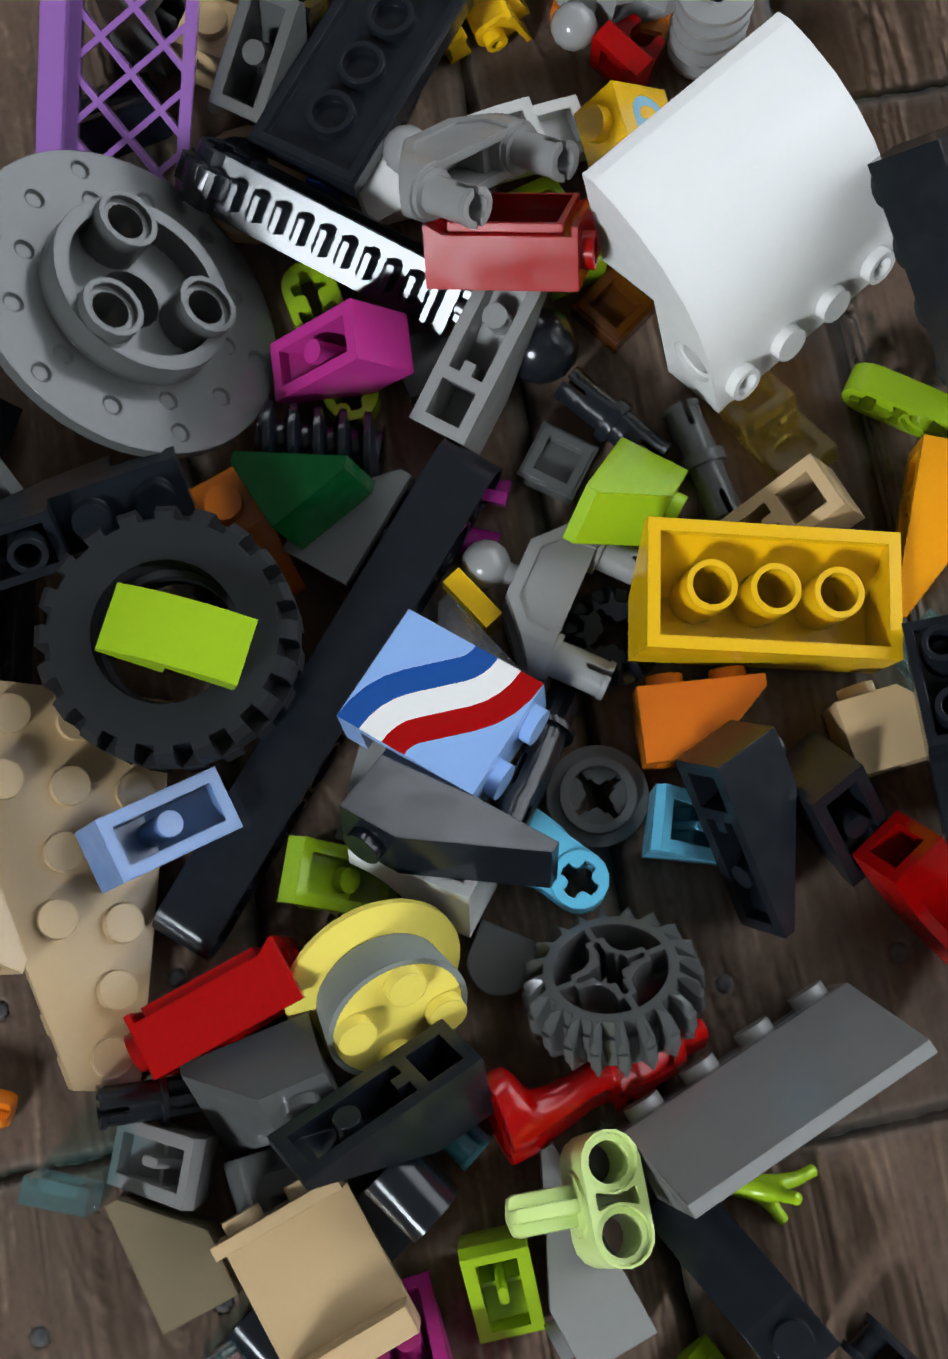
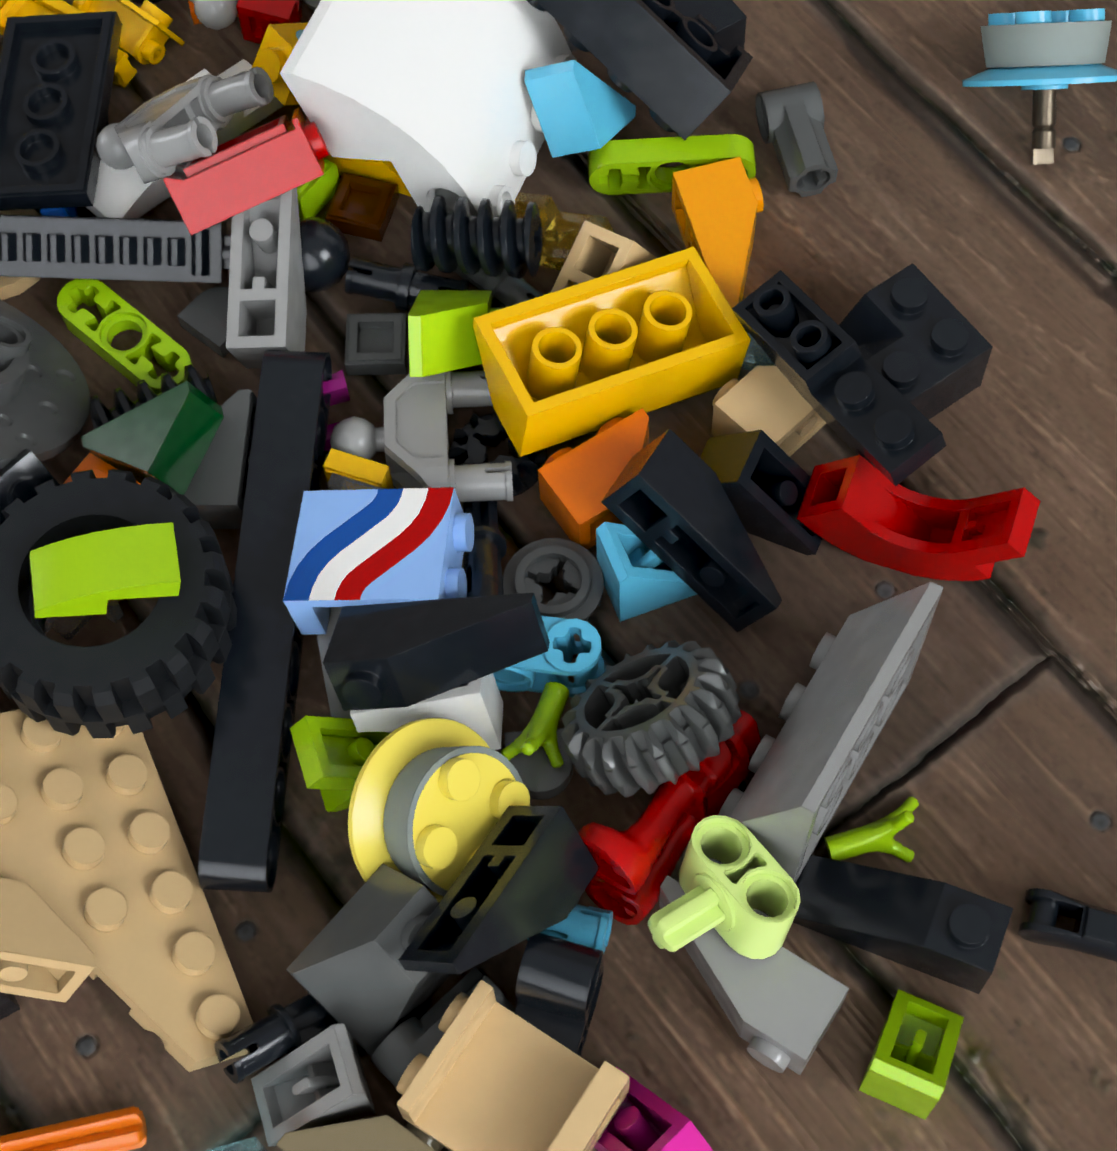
camera: 25 degrees left, 15 degrees down
(158, 829) = (162, 779): medium blue slope -> none
(214, 1008) = (293, 905): red window -> none
(342, 354) = (140, 329): dark pink slope -> none
(500, 1284) = (687, 1030): lime slope -> none
(515, 937) = (542, 726): none -> lime bar
(698, 418) = (477, 239): none -> black piece
(865, 320) = (576, 107): none -> medium azure slope

